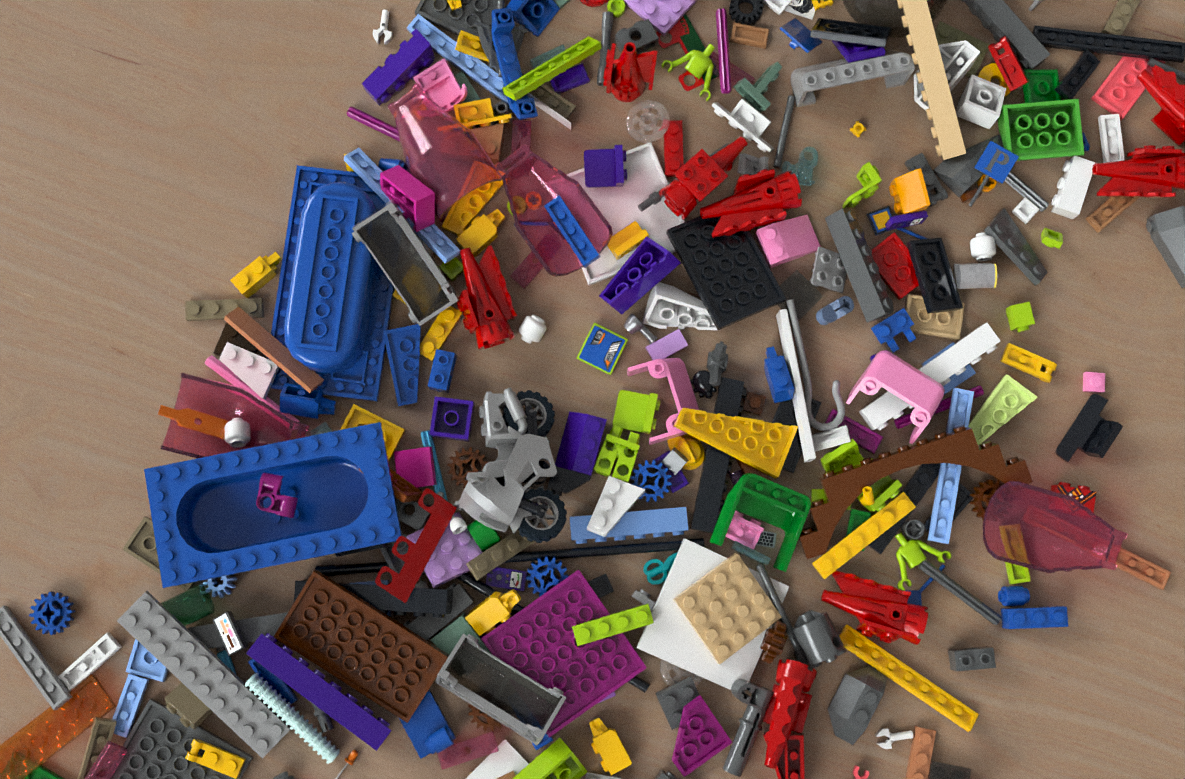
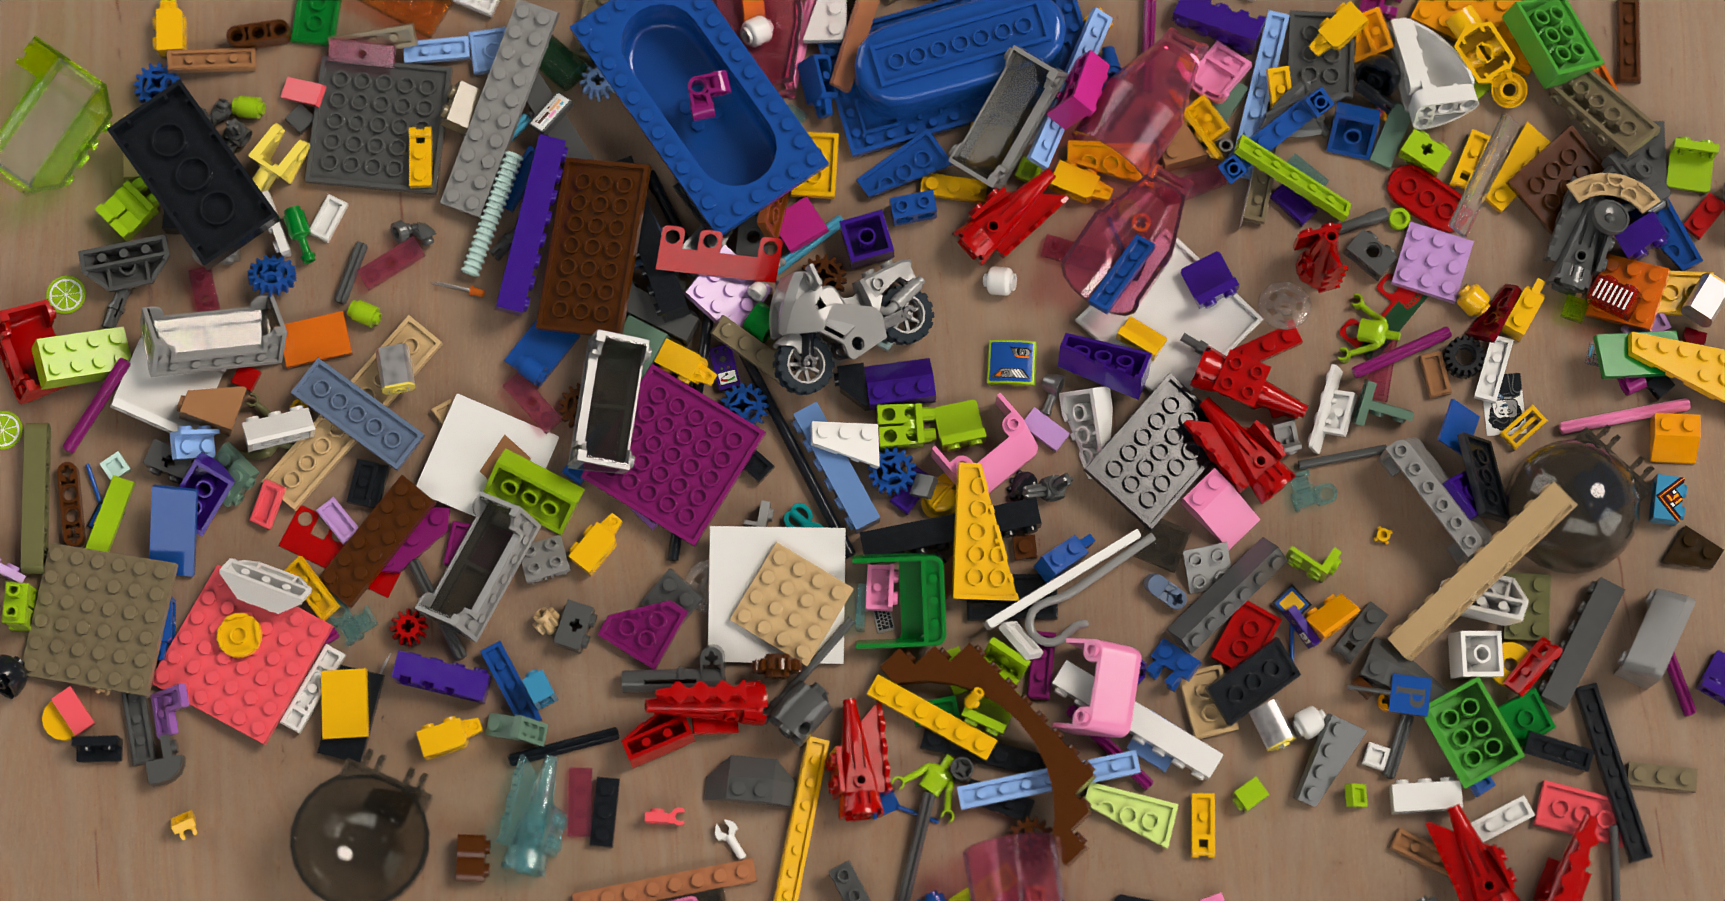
camera: 70 degrees right, 5 degrees down
(612, 624) = (723, 489): lime plate -> none

